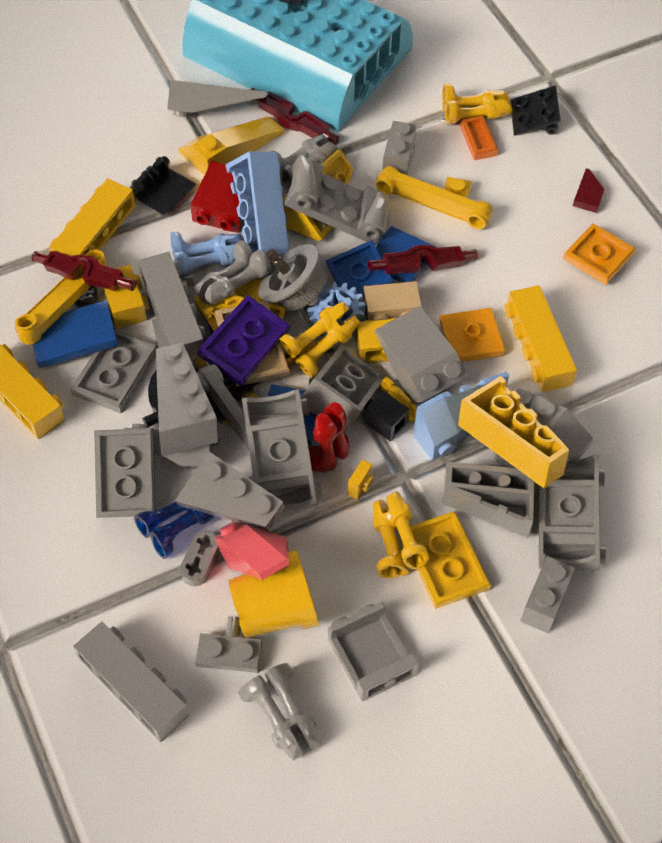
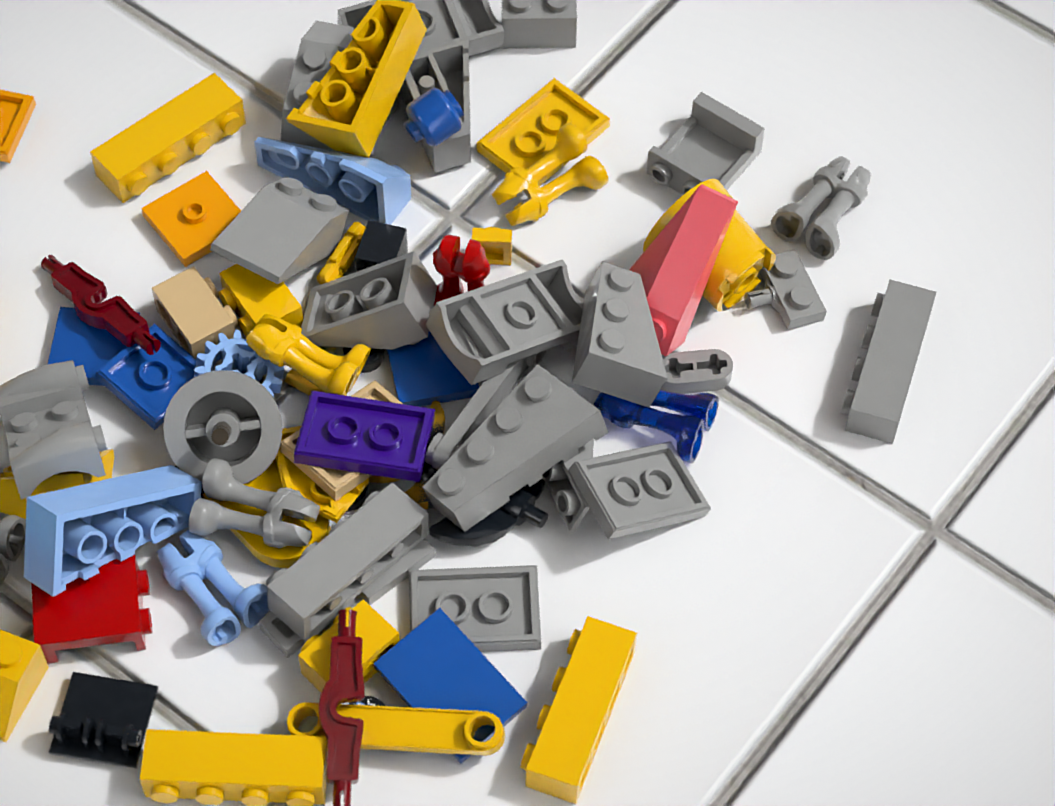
camera: 115 degrees left, 0 degrees up
(460, 459) = (433, 117): none -> blue head

